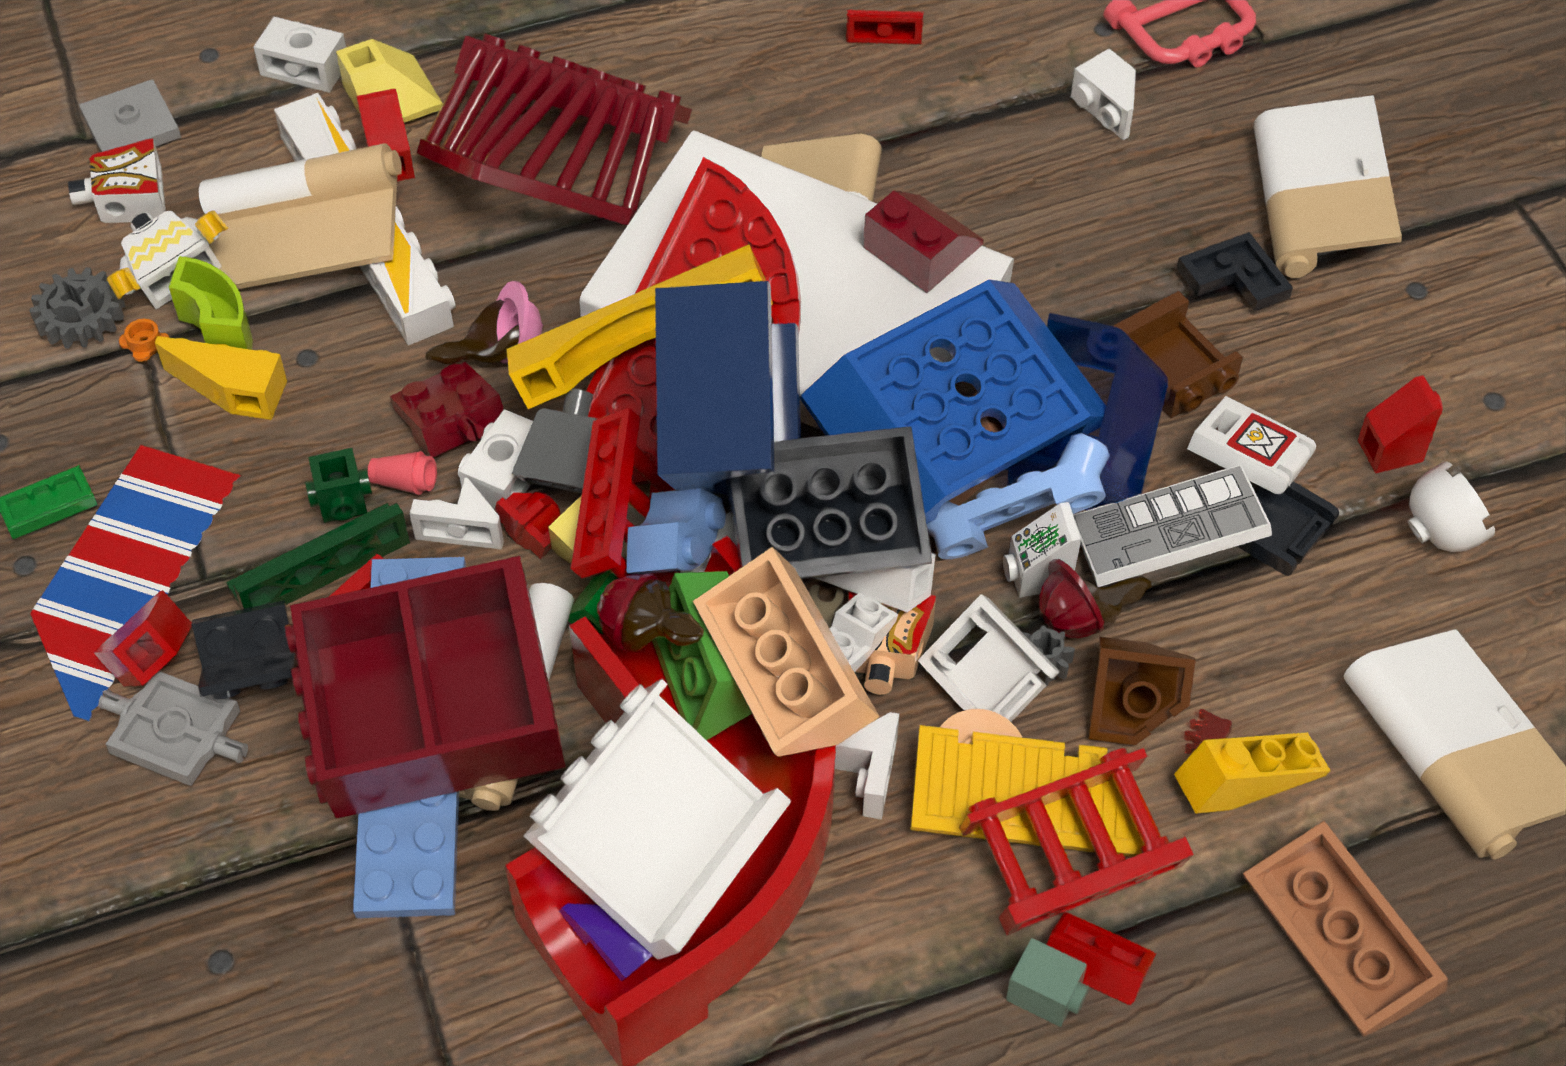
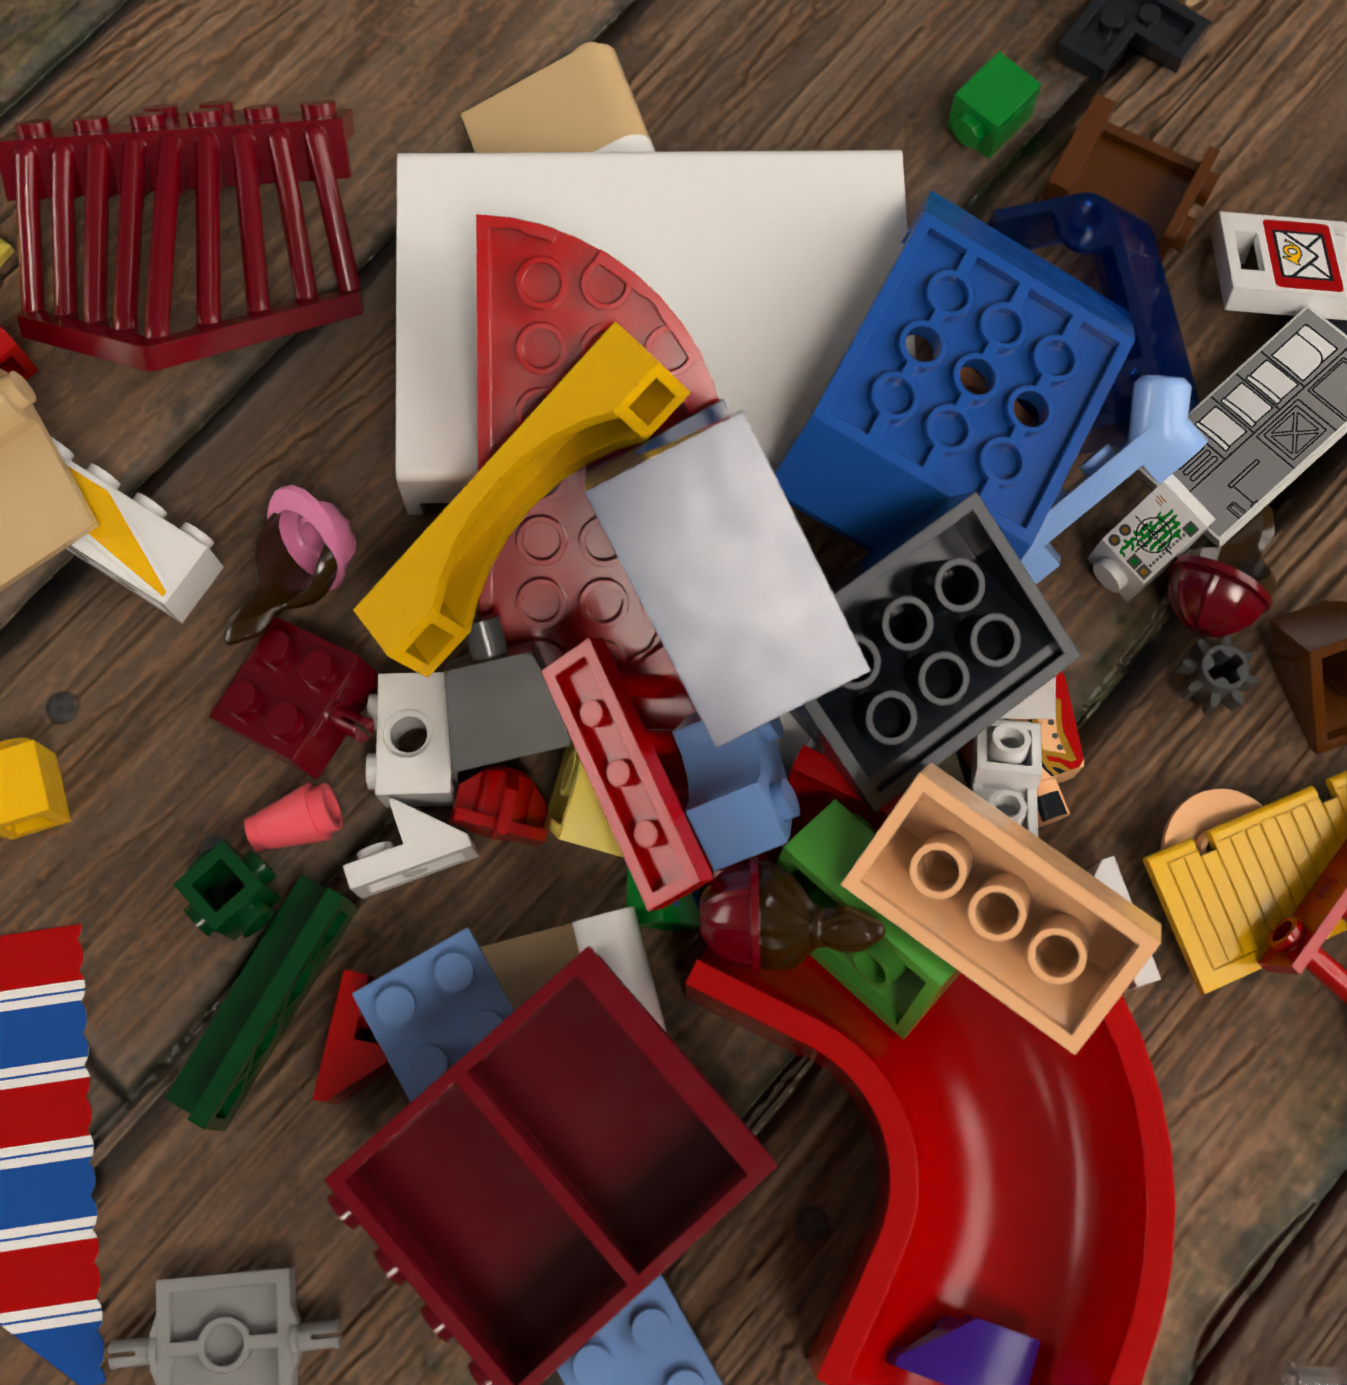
camera: 25 degrees left, 20 degrees up
(145, 641) = (118, 1248): red slope -> none
(243, 650) = (259, 1202): black bracket -> none
(653, 822) = (966, 1212): white panel -> none
(917, 238) = (783, 184): dark red slope -> none
(997, 671) = (1180, 731): white container -> none
(1110, 276) = (993, 105): none -> green brick

